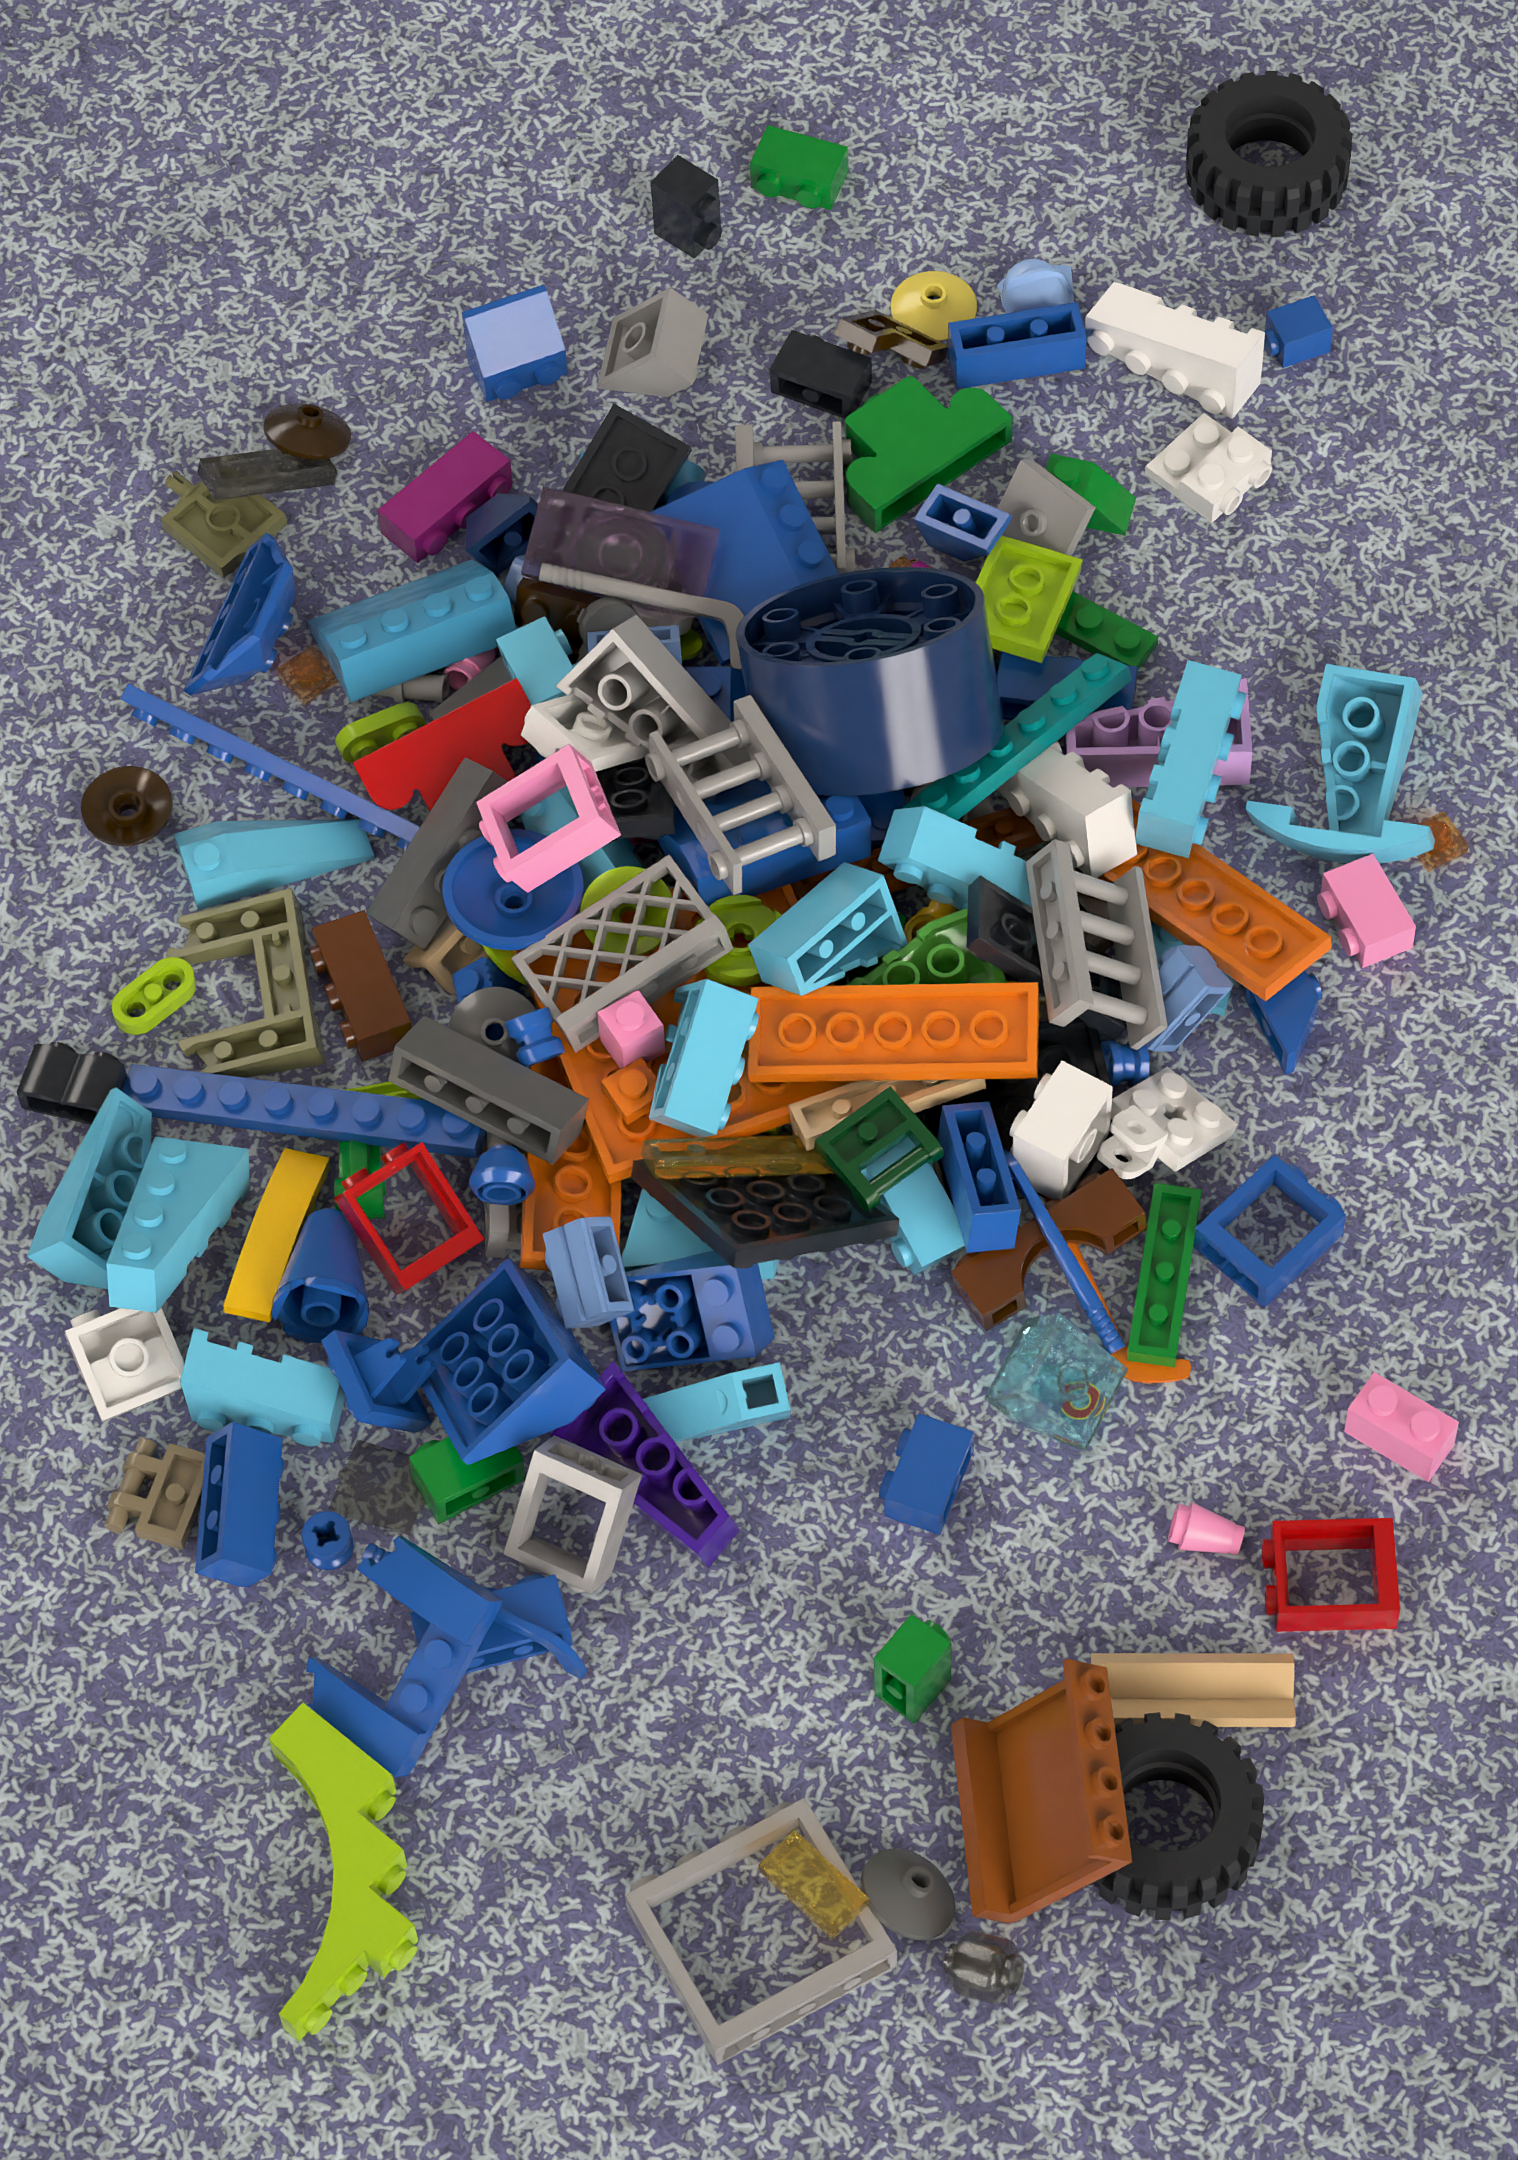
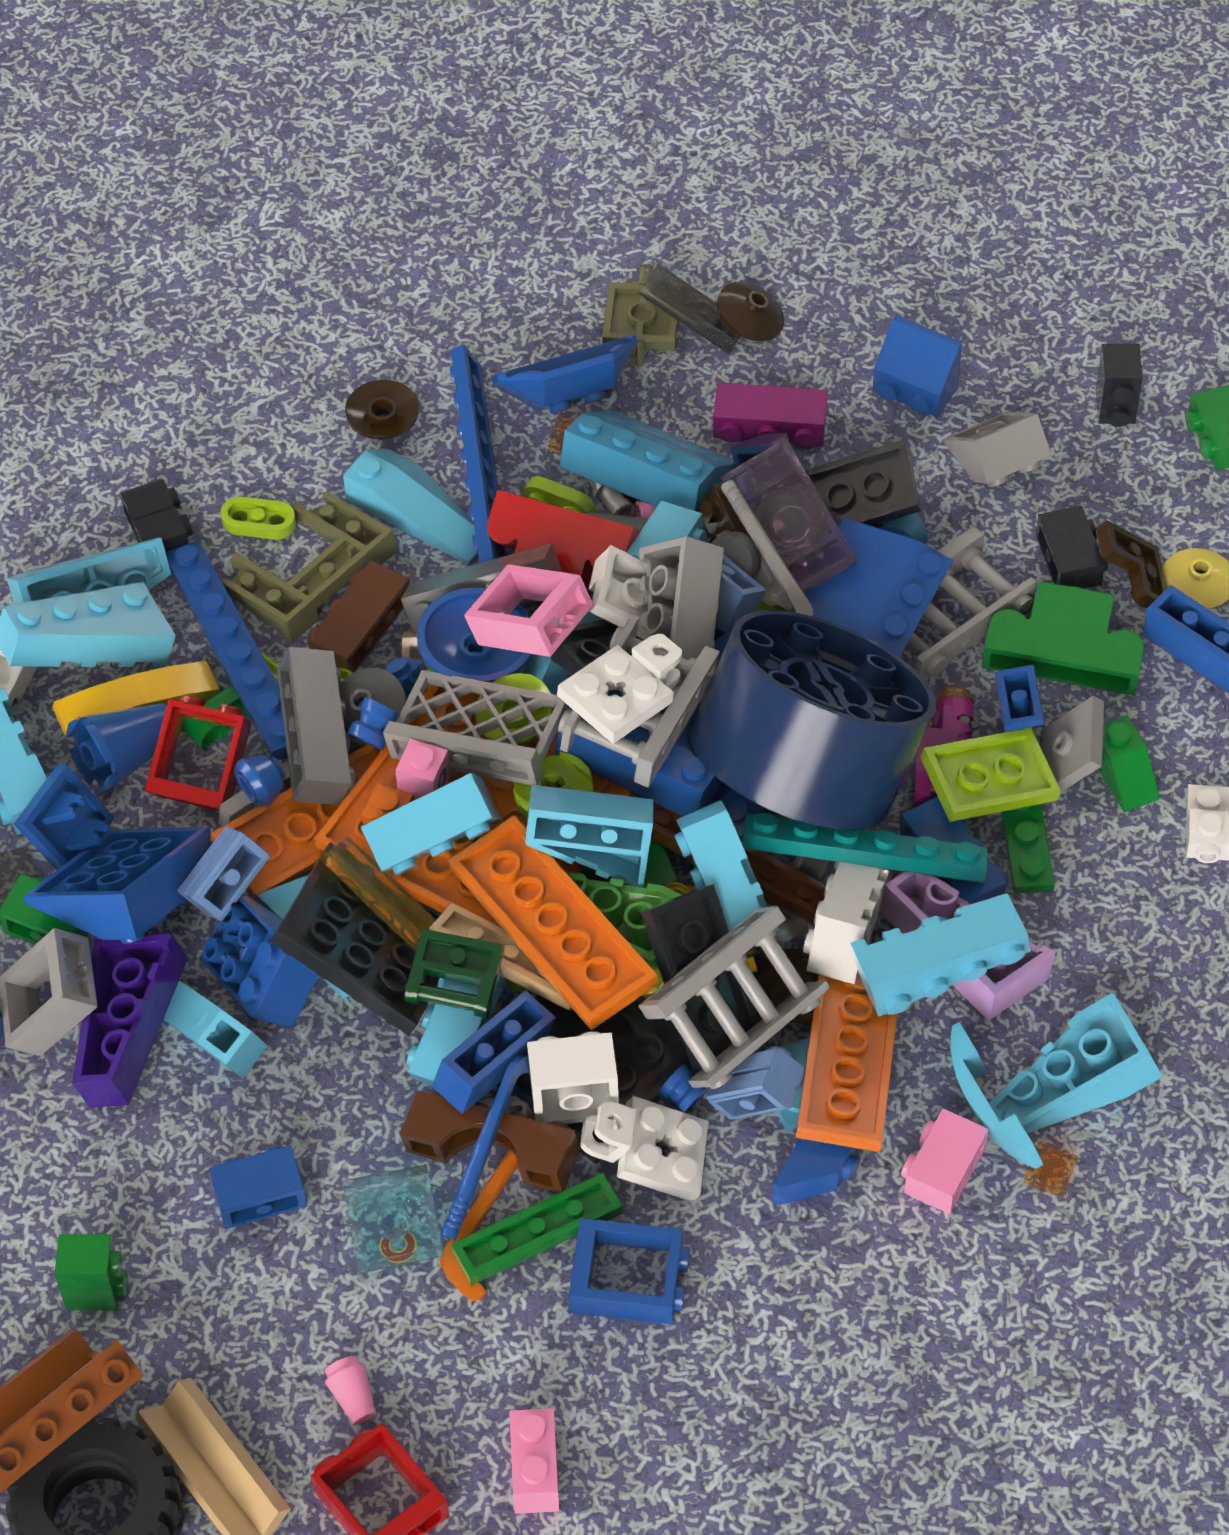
camera: 50 degrees right, 5 degrees down
(731, 773) = (642, 678): none -> white plate

